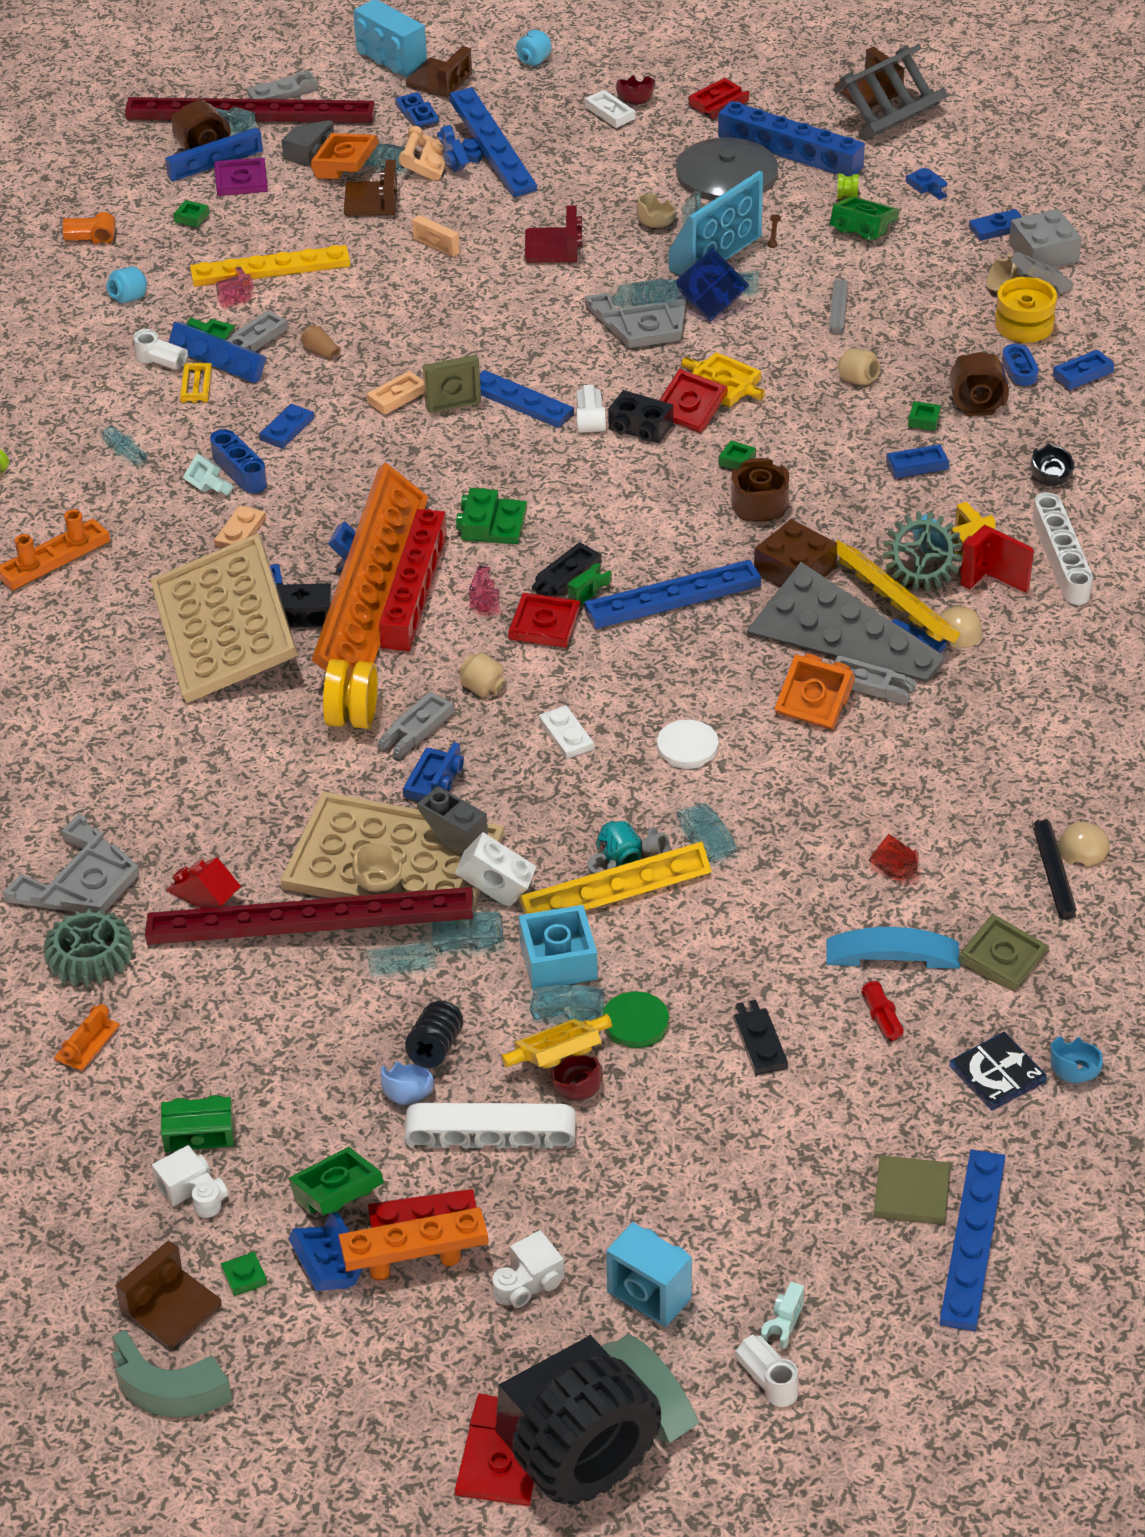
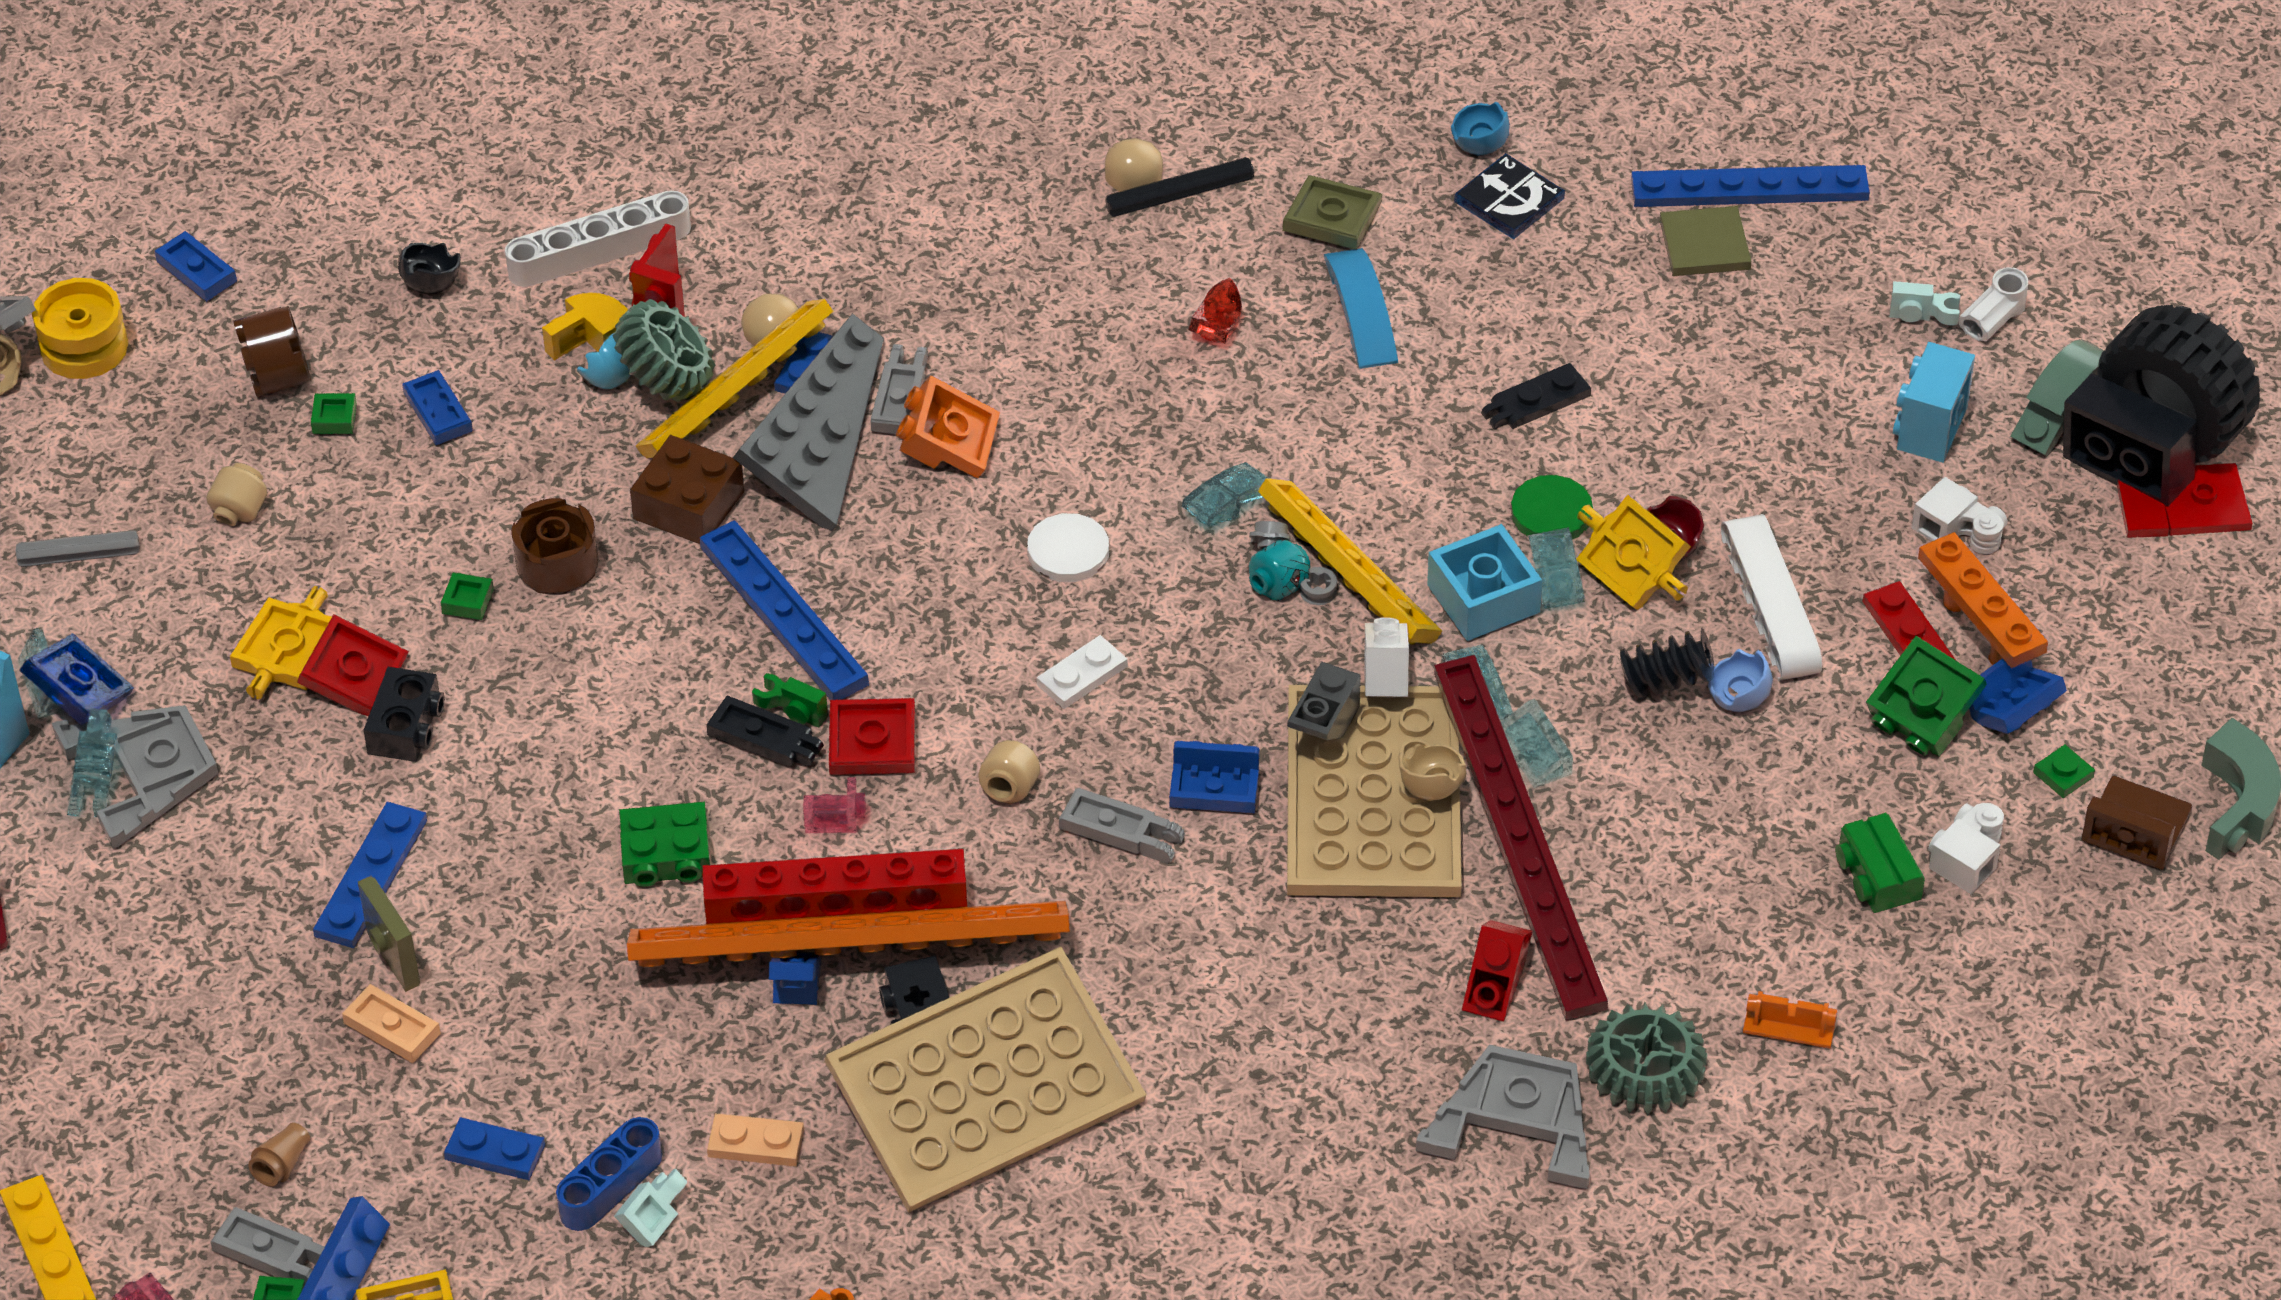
camera: 105 degrees left, 5 degrees up
(350, 693) = (1111, 882): yellow wheel -> none
(590, 411) = (407, 775): white piece -> none
(882, 1010) = (1459, 298): red axle -> none
(1024, 367) = (194, 331): blue plate -> none

